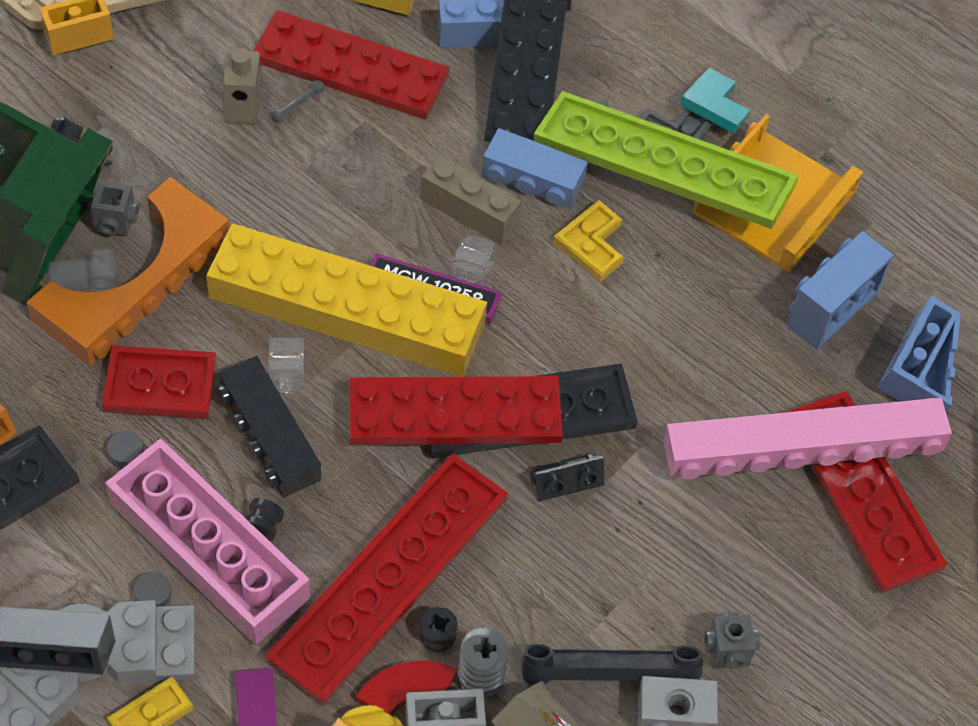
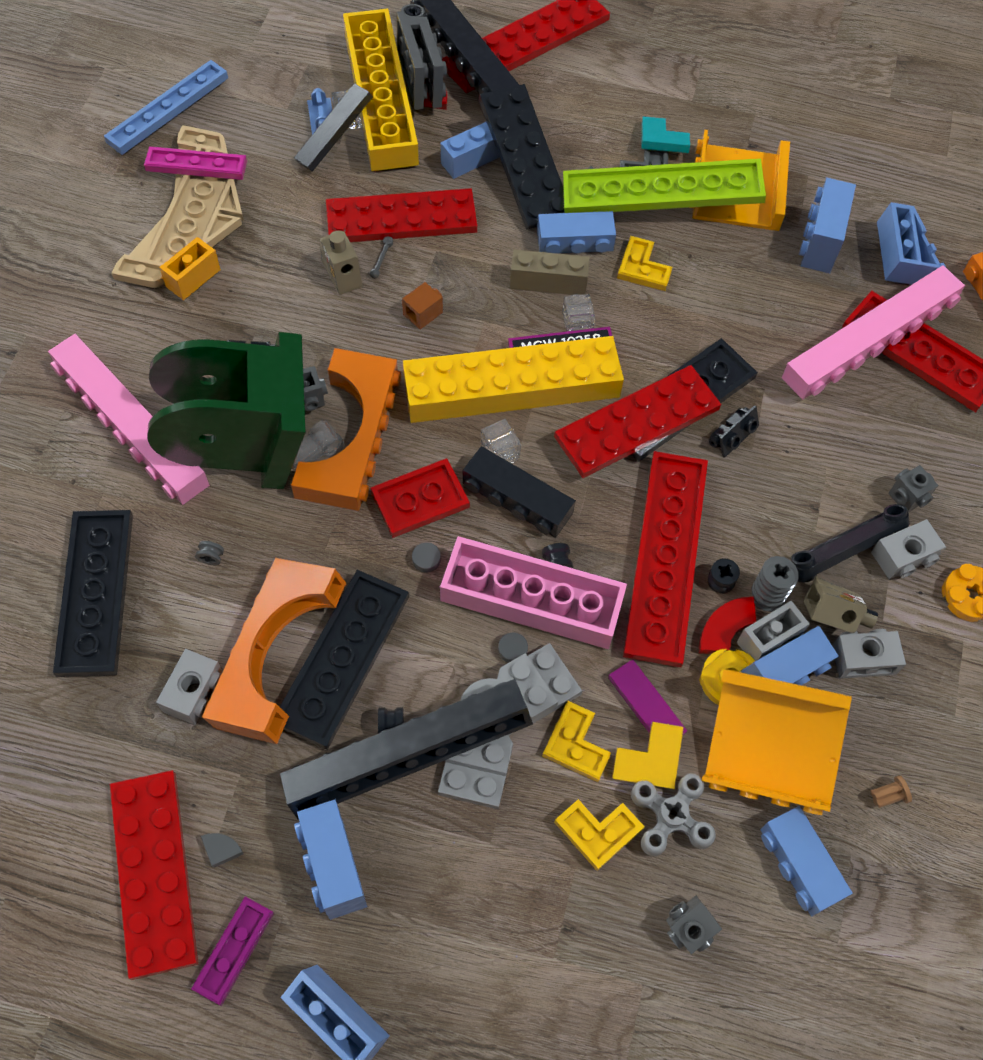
camera: 25 degrees left, 5 degrees up
(304, 173) = (422, 305): none -> dark orange brick

